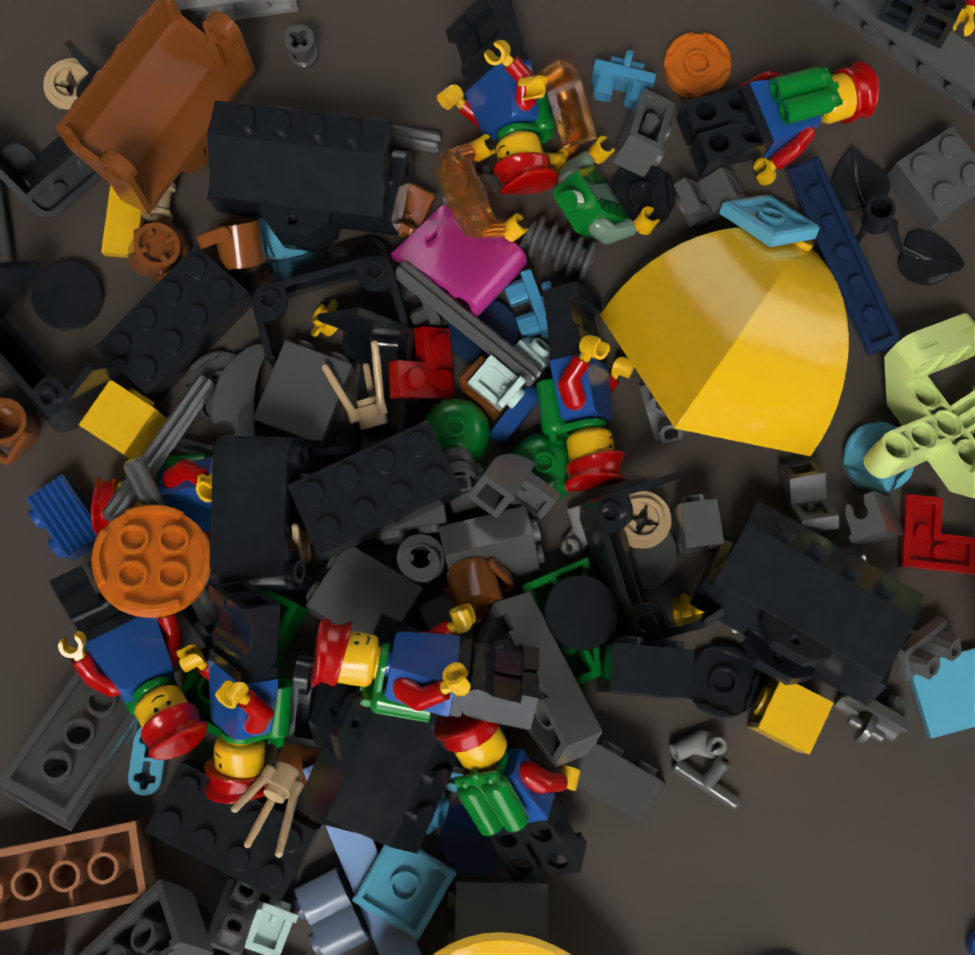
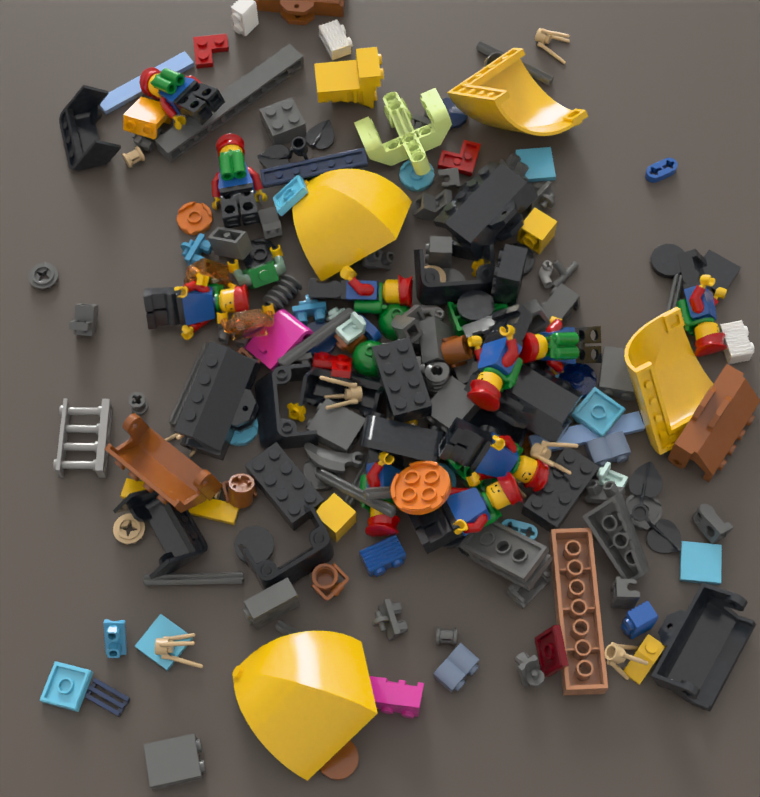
camera: 80 degrees left, 15 degrees down
(237, 242) = (245, 447): dark orange piece -> none

